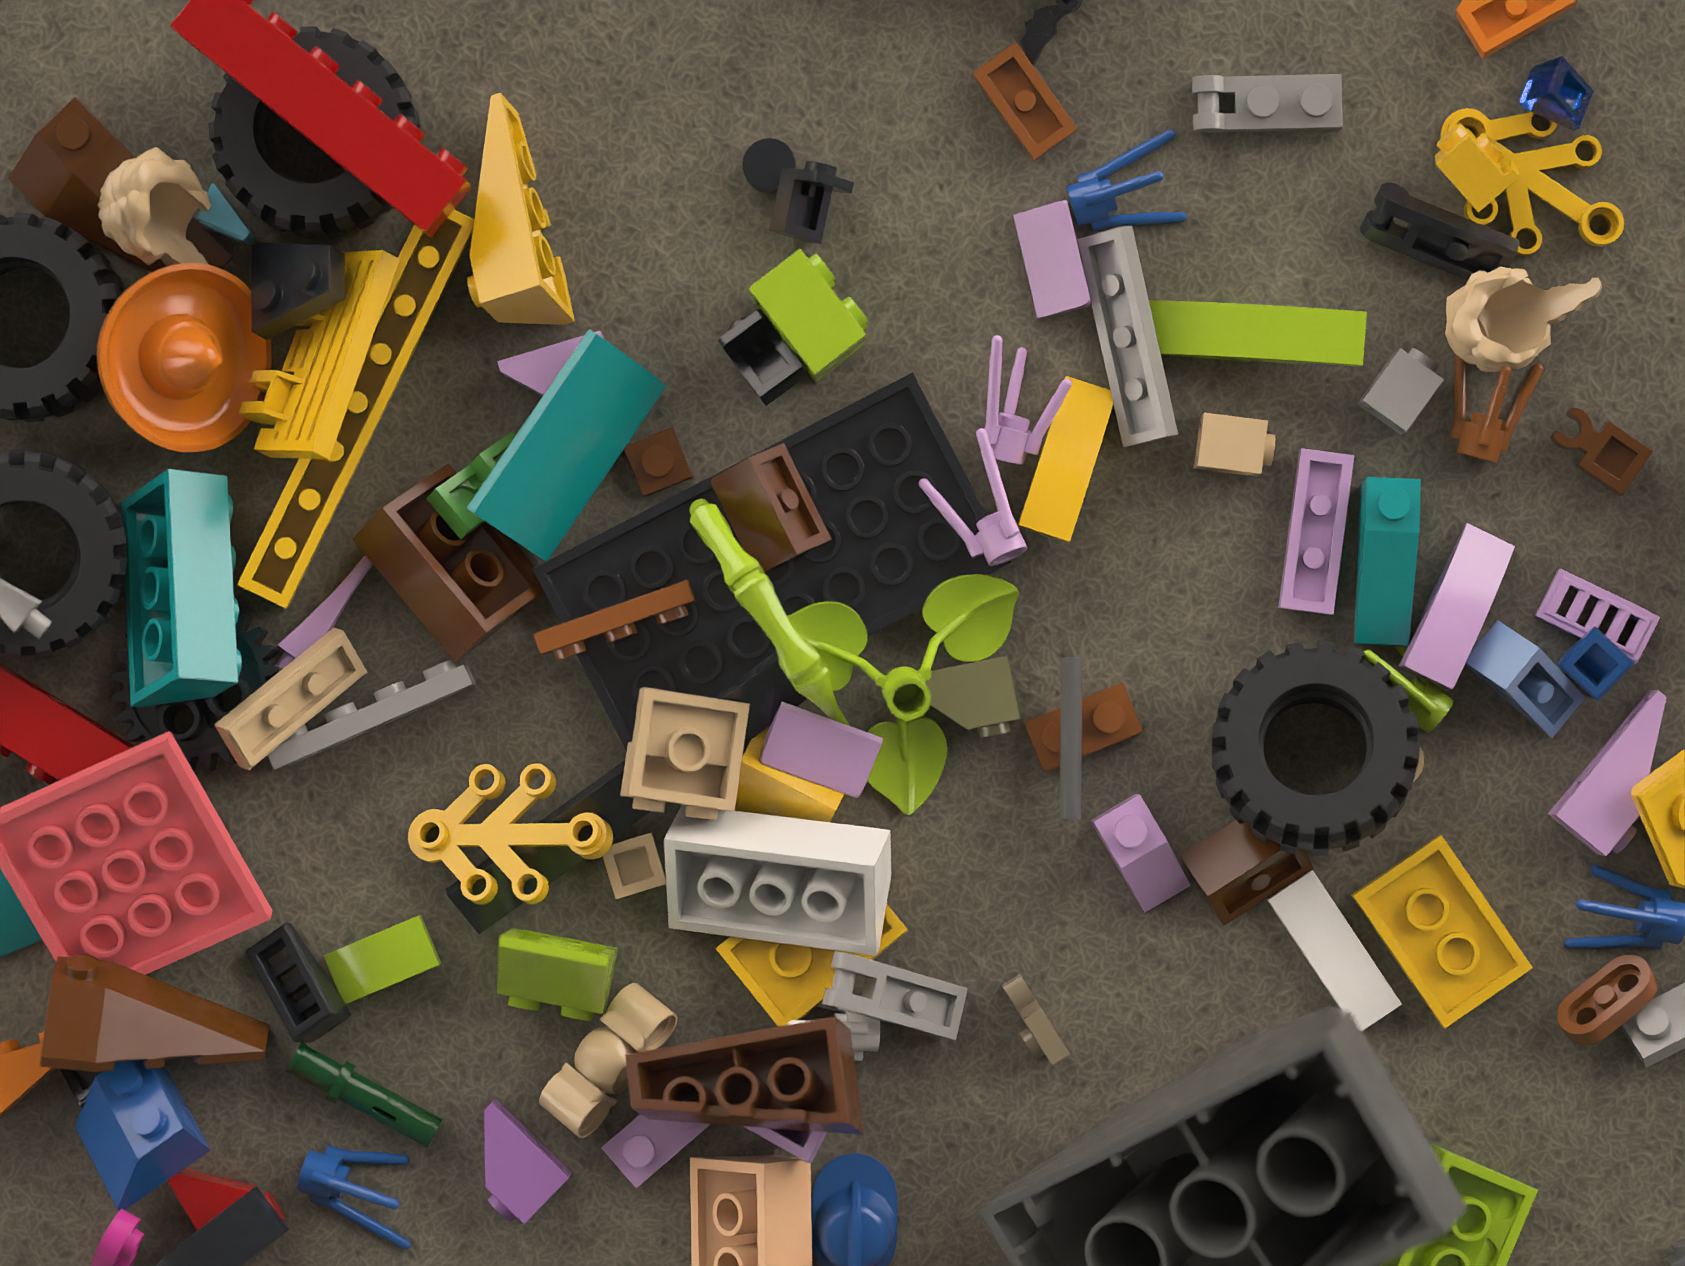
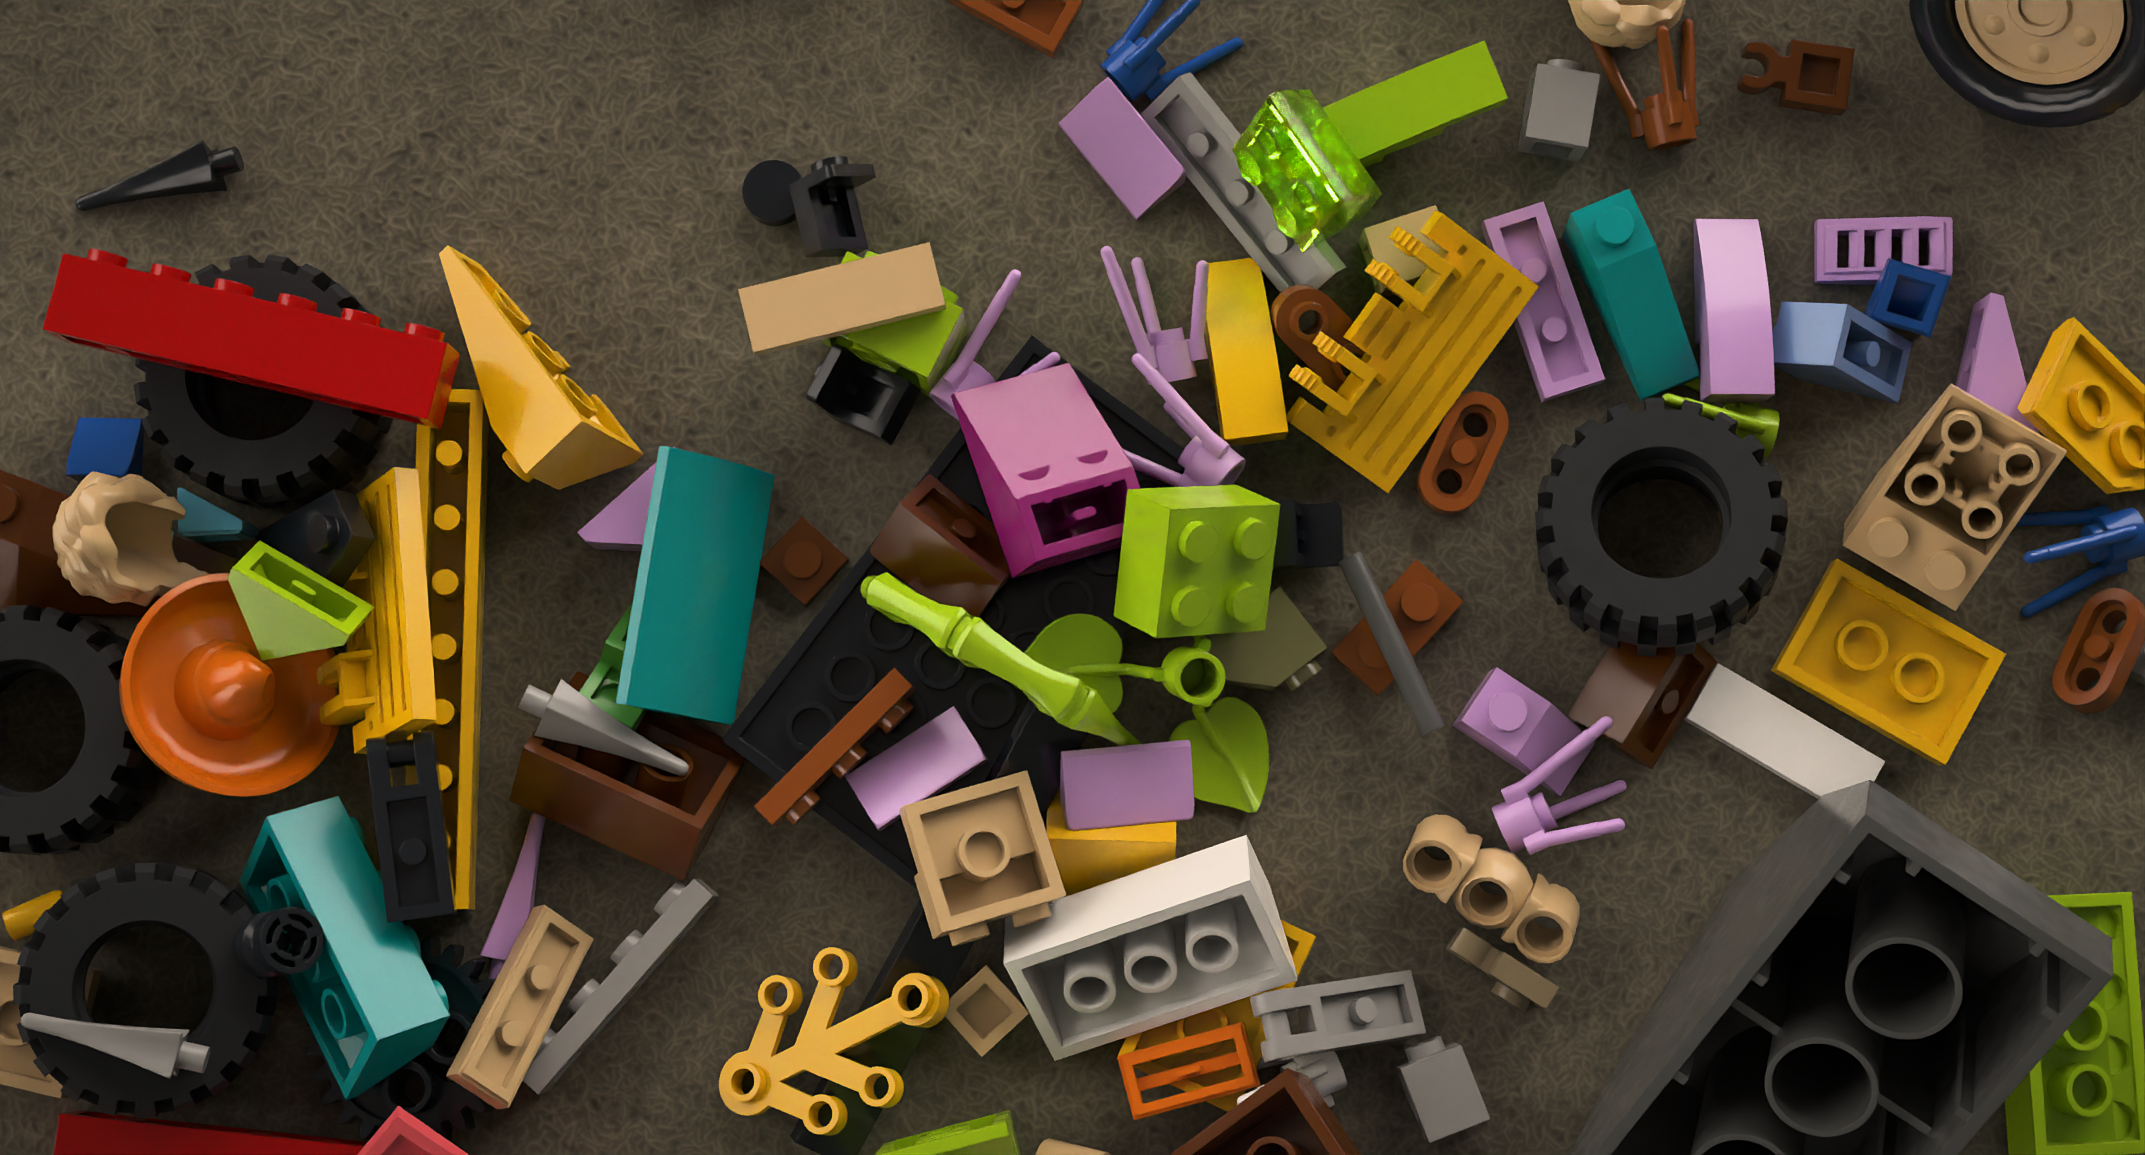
camera: 30 degrees left, 5 degrees down
(125, 563) = (263, 944): none -> black wheel
(169, 123) = (106, 447): none -> blue slope
(260, 321) = (292, 606): none -> lime slope
(271, 530) = (411, 829): none -> black plate
(431, 505) = (578, 721): none -> light grey piece
(668, 661) = (916, 767): none -> lavender slope
(778, 285) = (842, 299): none -> tan tile
(810, 991) = (1242, 1056): none -> orange tile
(843, 387) = (967, 373): none -> lavender plant
(875, 484) = (1046, 467): none -> slope
(946, 1086) = (1440, 1088): none -> light grey brick
(950, 608) = (1196, 560): none -> lime brick
(1044, 623) = (1309, 535): none -> black bracket
(1049, 933) = (1512, 910): none -> tan piece
(1109, 918) = (1528, 819): none -> lavender plant
(1135, 484) = (1329, 319): none -> dark orange plate
(1178, 347) = (1304, 168): none -> clear neon green slope
(1194, 526) = (1414, 353): none -> yellow hinge
(1197, 618) = (1462, 454): none -> dark orange plate
(1543, 831) = (1950, 496): none -> tan slope

